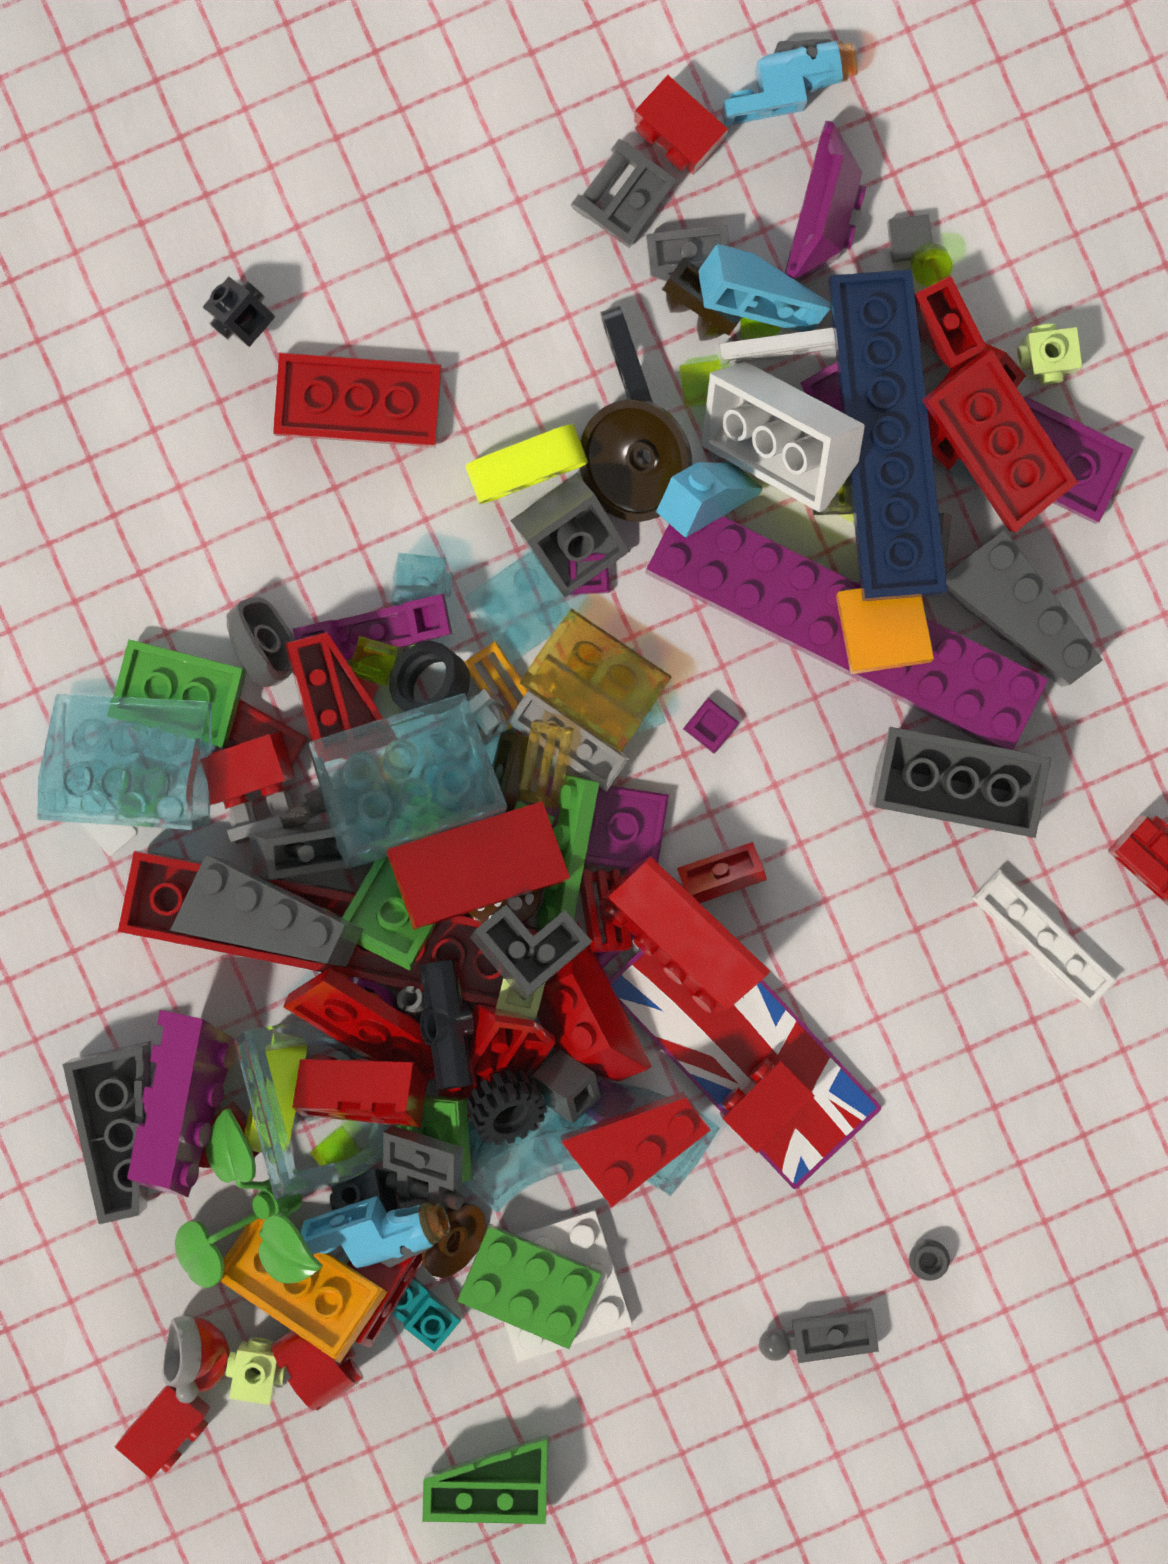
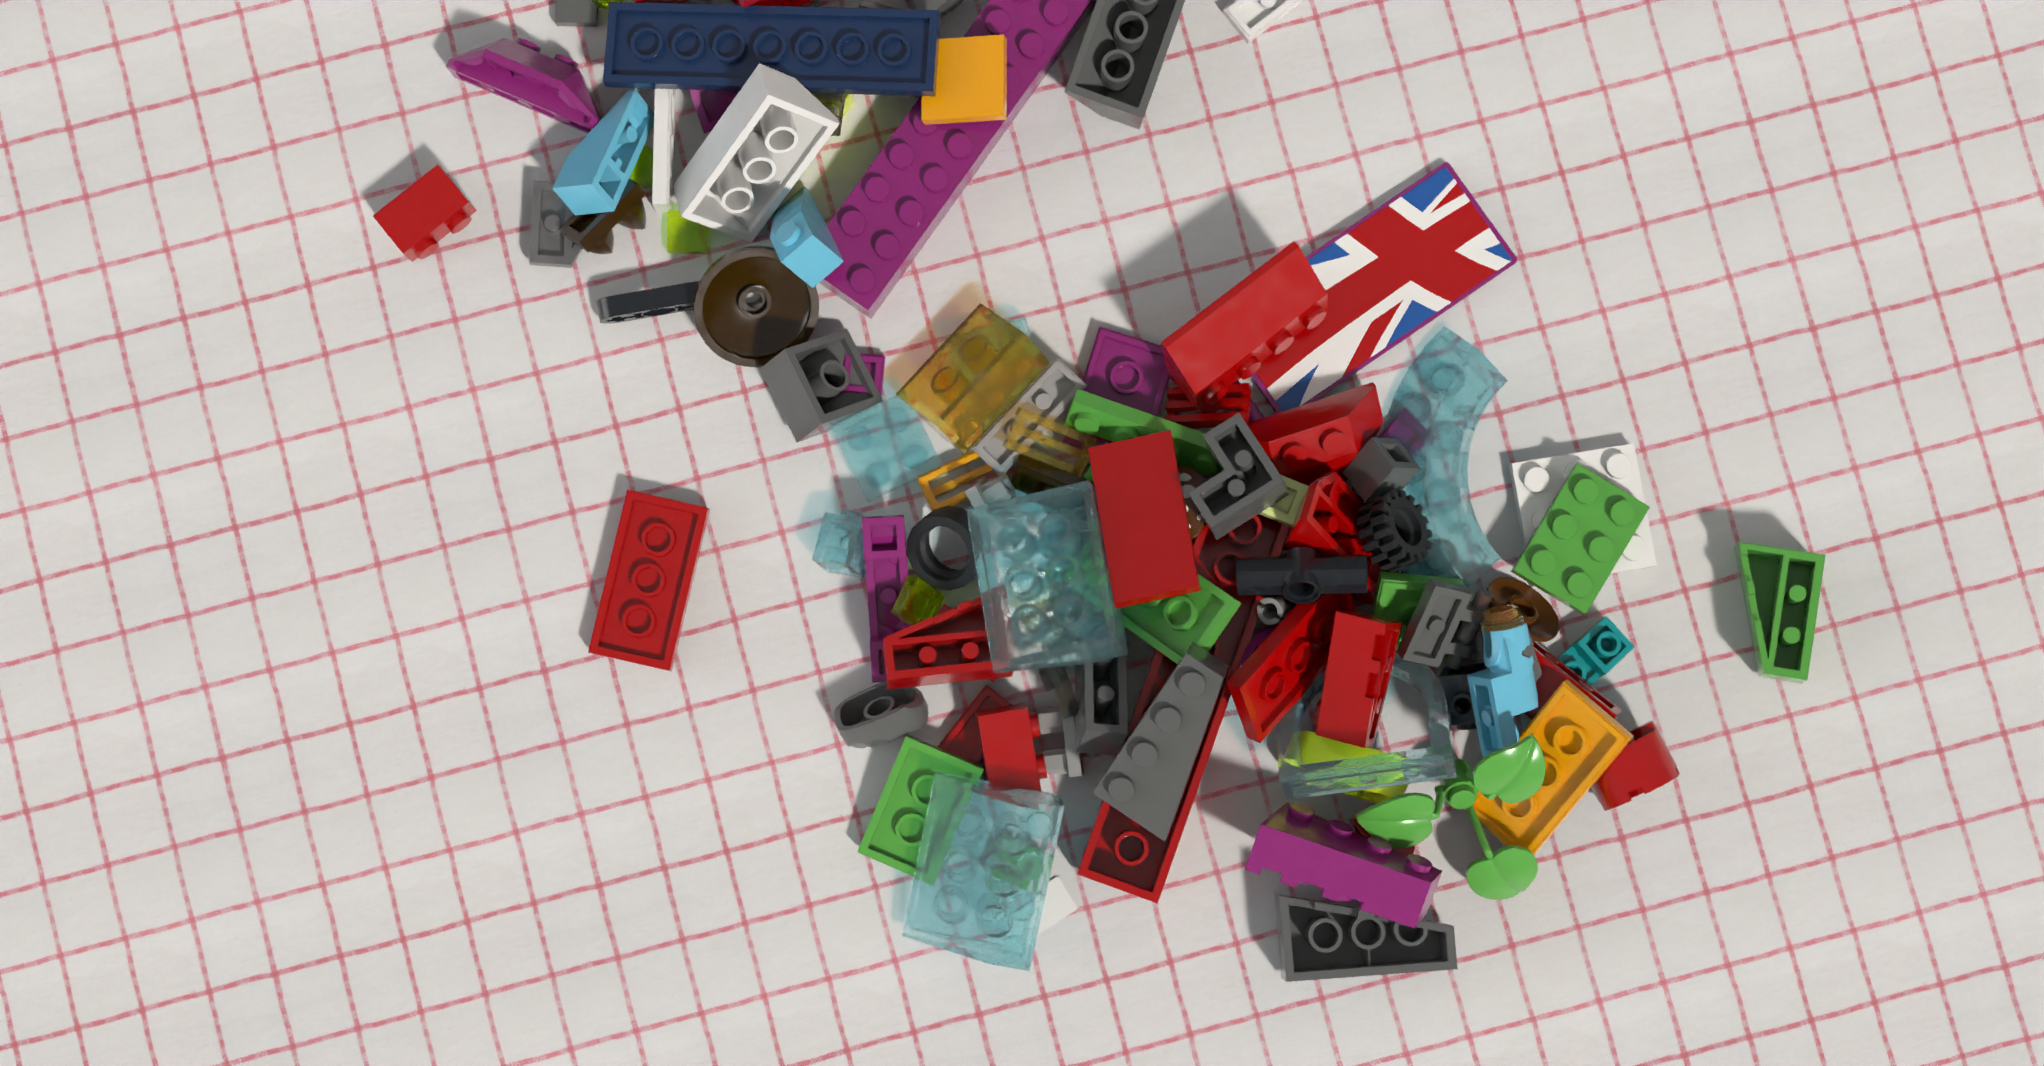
camera: 85 degrees left, 5 degrees down
(160, 1430) = (1677, 938): red brick -> none
(194, 1356) = (1606, 895): light grey piece -> none
(238, 311) = (539, 686): black brick -> none
(254, 1384) = (1644, 835): yellowish green brick -> none
(335, 1148) = (1412, 719): clear neon green tile -> none
(526, 463) = (742, 418): neon yellow beam -> none
(634, 201) = (493, 270): dark grey plate -> none
(634, 1146) = (1450, 403): red wedge -> none
(711, 725) = (1035, 274): magenta tile -> none
(722, 873) = (1186, 280): red plate -> none
(765, 1103) = (1426, 273): red brick -> none
(787, 74) = (393, 100): medium azure plate -> none
(823, 1337) = (1671, 253): dark grey plate -> none
(935, 1270) = (1615, 129): dark grey plate -> none

